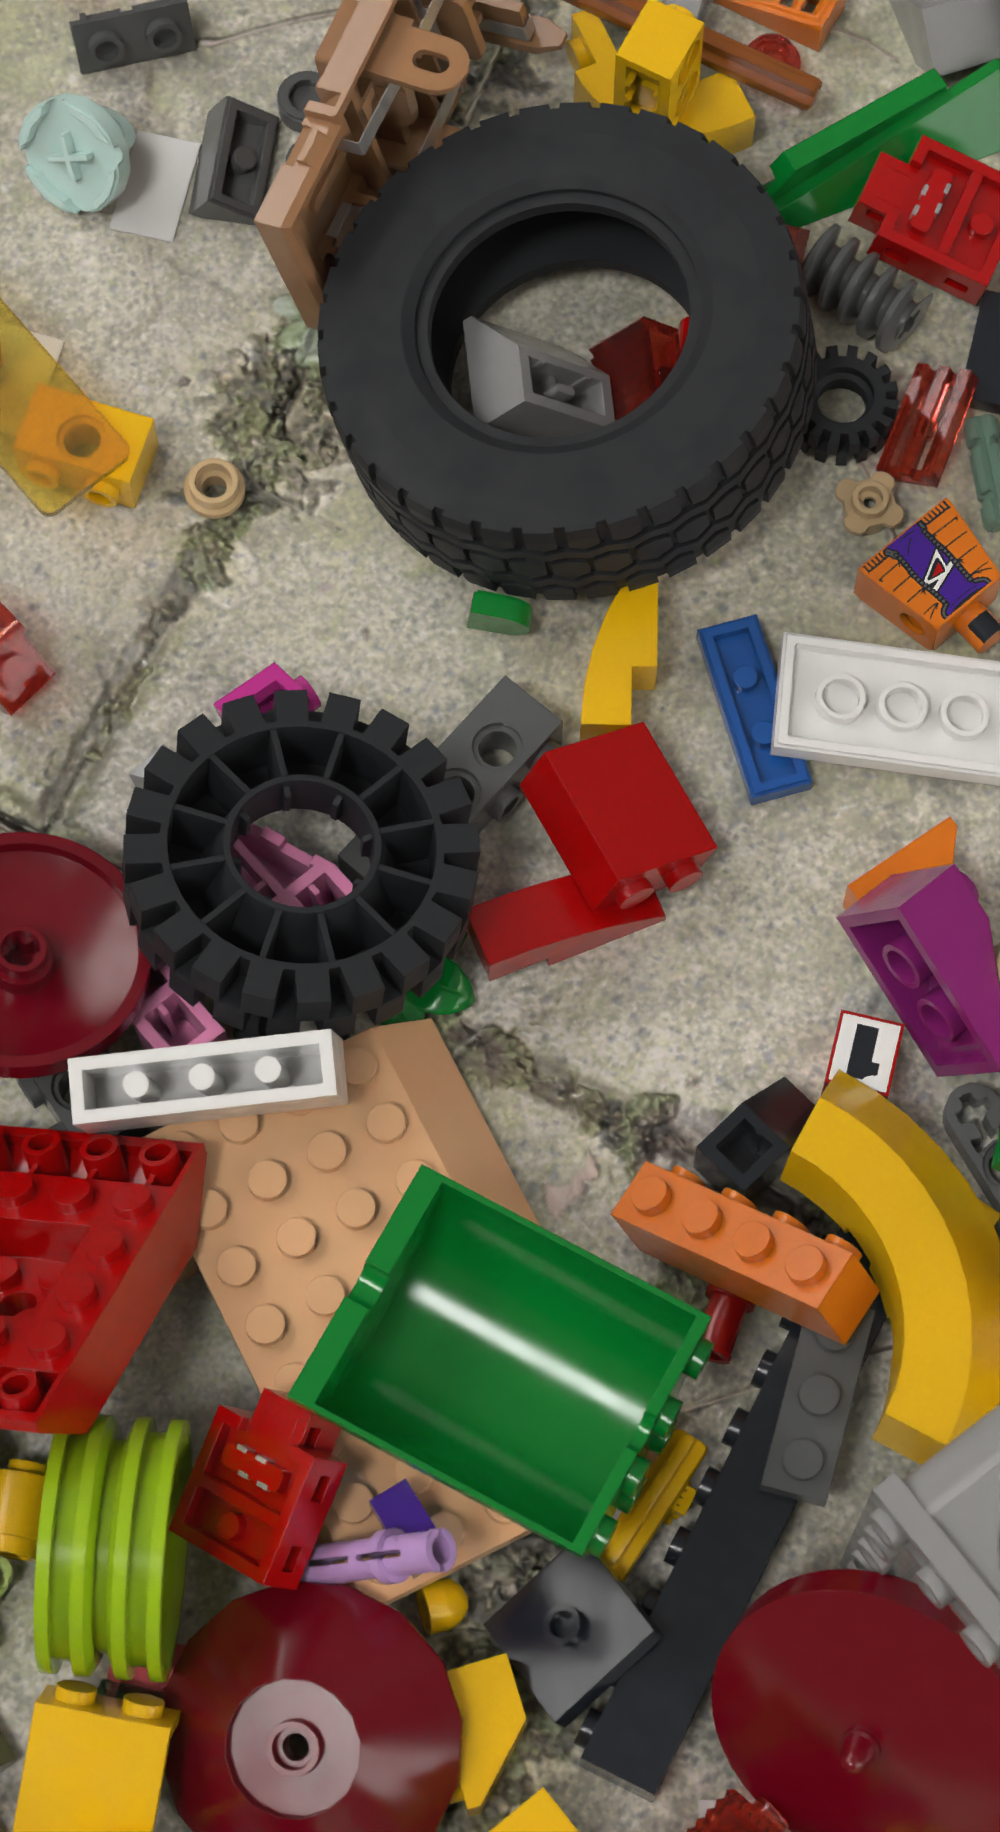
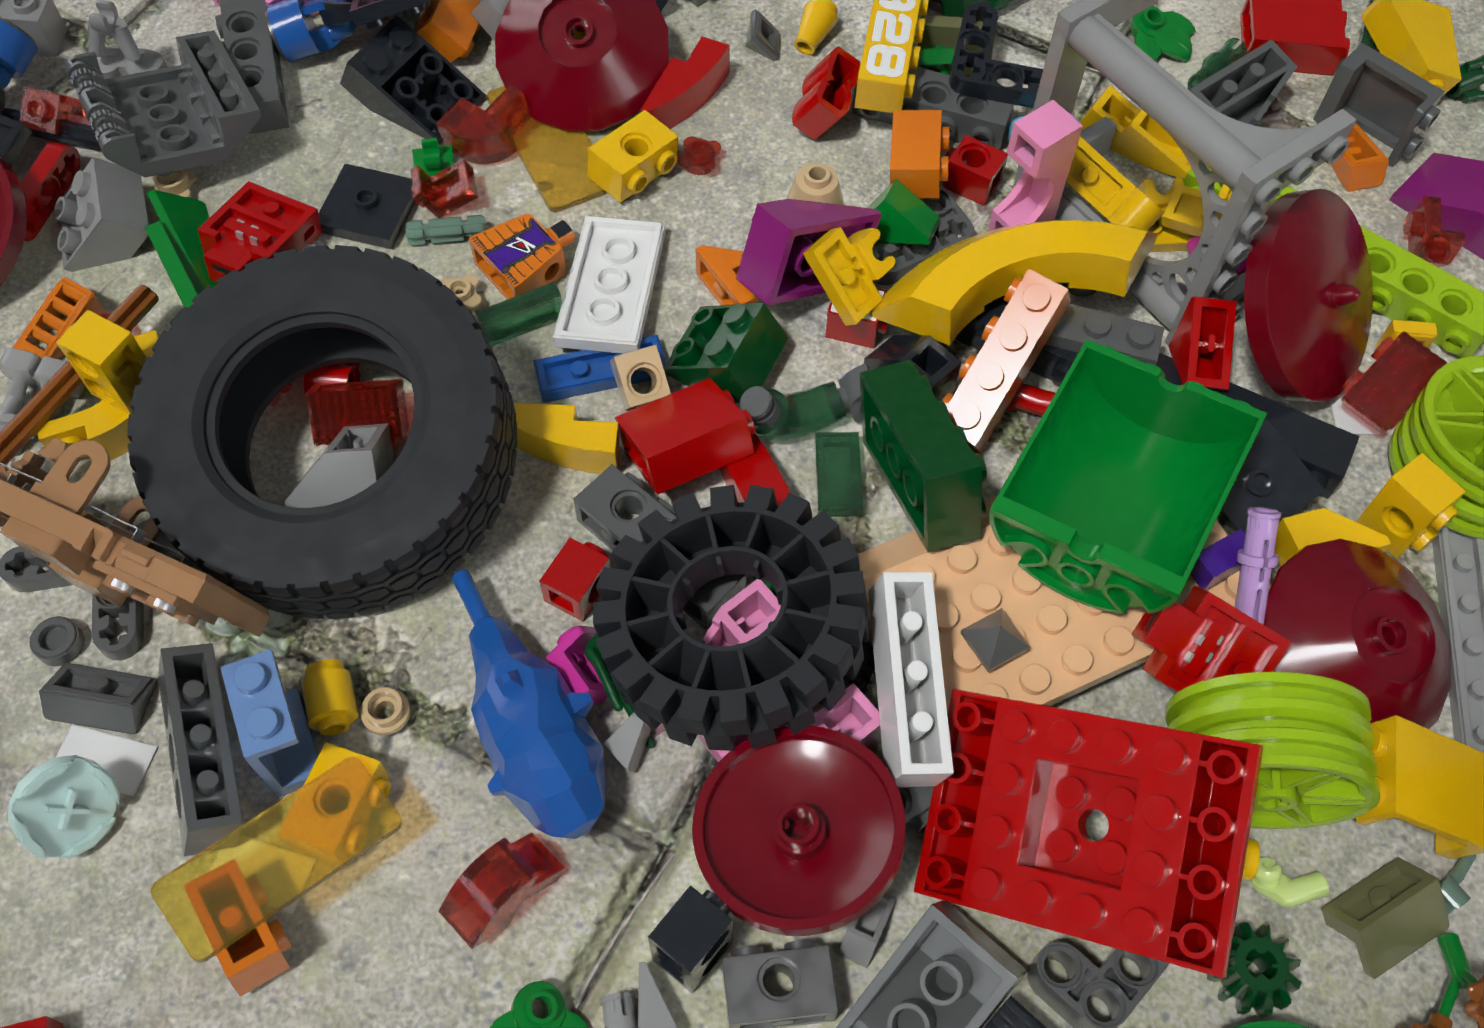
camera: 90 degrees left, 10 degrees down
(149, 282) = (198, 746): none -> dark grey brick
(170, 353) = (270, 723): none -> medium blue panel
(181, 650) = (532, 727): none -> blue piece
(226, 419) = (329, 697): none -> yellow brick
(286, 1211) = (994, 640): none -> dark grey slope
(403, 689) = (573, 578): none -> red brick
(499, 614) = (516, 514): green tile -> none
(574, 1118) = (922, 455): none -> dark green brick
(586, 1041) = (838, 474): none -> clear green tile
(678, 981) = (804, 412): none -> clear green piece
(740, 760) = (644, 359): none -> tan brick
(770, 1552) = (1205, 342): none -> red slope
(777, 876) = (729, 345): none -> dark green slope
(828, 585) = (520, 314): none -> clear green tile
(883, 1022) = (848, 271): none -> yellow plate
(917, 424) = (378, 244): clear red tile -> none

